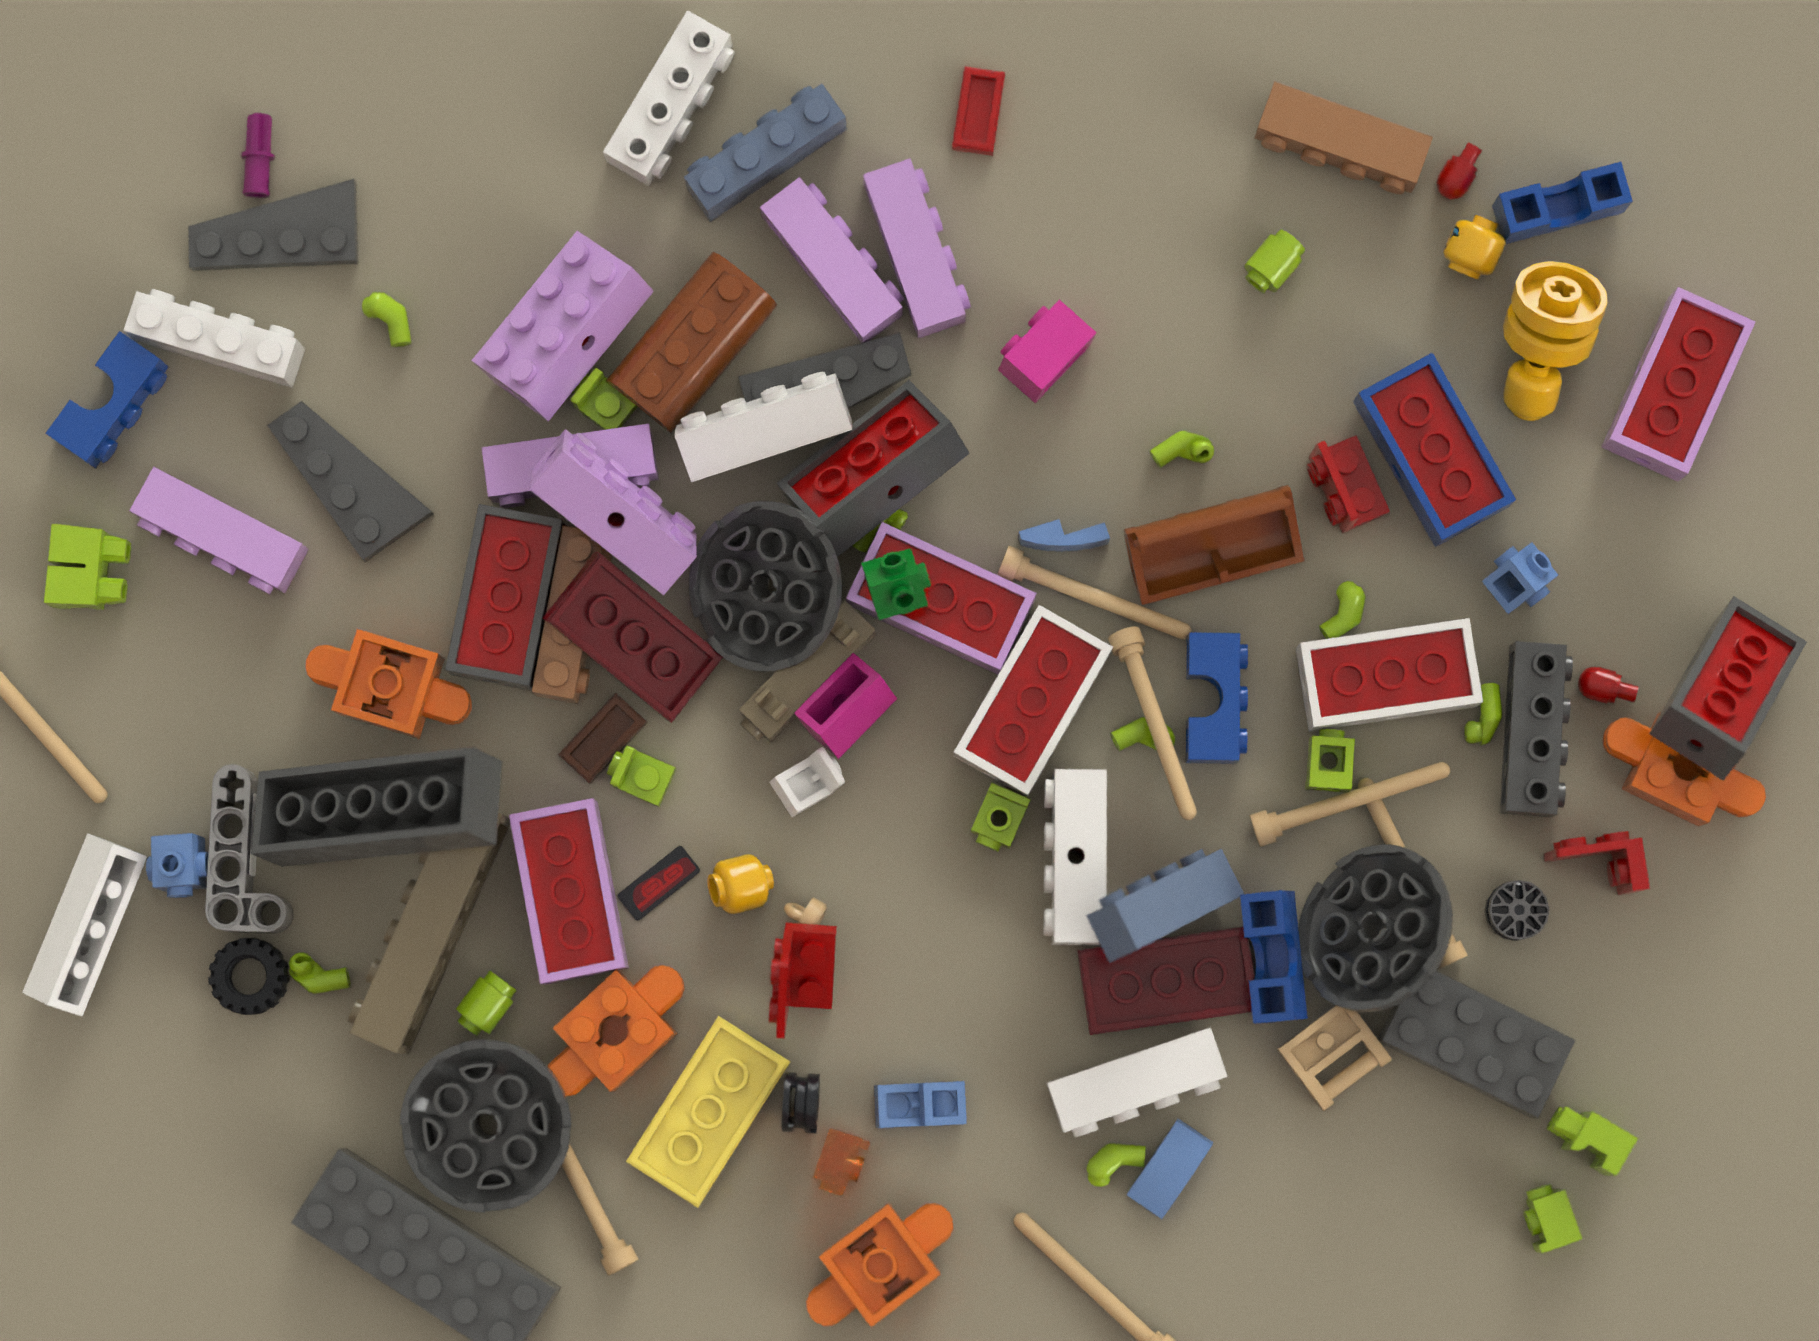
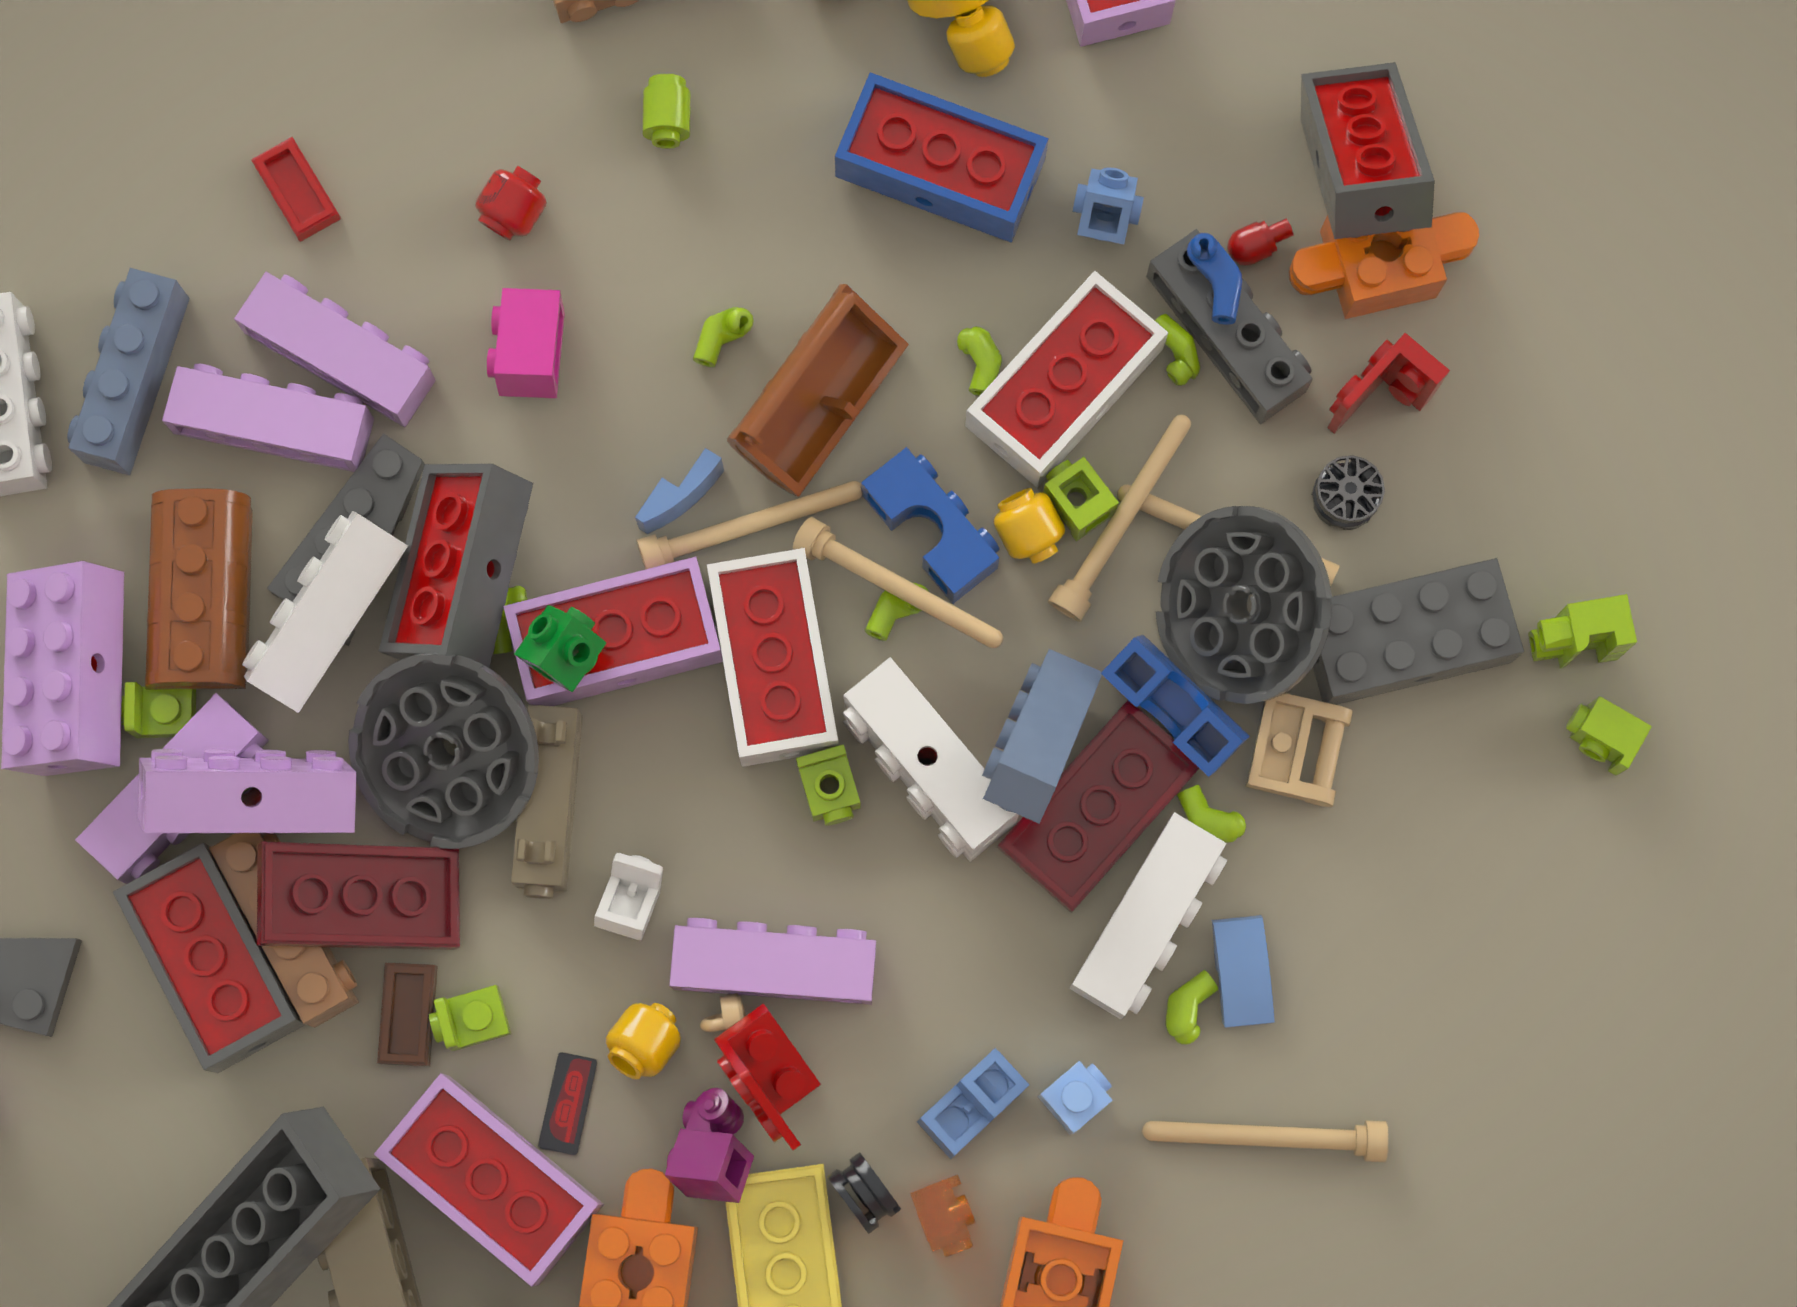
camera: 45 degrees left, 5 degrees down
(388, 684) = (162, 1129): orange brick -> none
(719, 995) = (706, 1155): none -> magenta brick
(845, 705) = (606, 798): dark pink brick -> none
(865, 904) = (773, 963): none -> lavender brick
(991, 1157) = (1077, 1096): none -> light blue brick
(1114, 241) = (510, 203): none -> red head
(1231, 1051) = (1218, 823): none -> lime arm
(1279, 753) = (1029, 525): none -> yellow head
(1347, 484) = (888, 249): red bracket -> none
(1554, 691) = (1221, 273): none -> blue arm

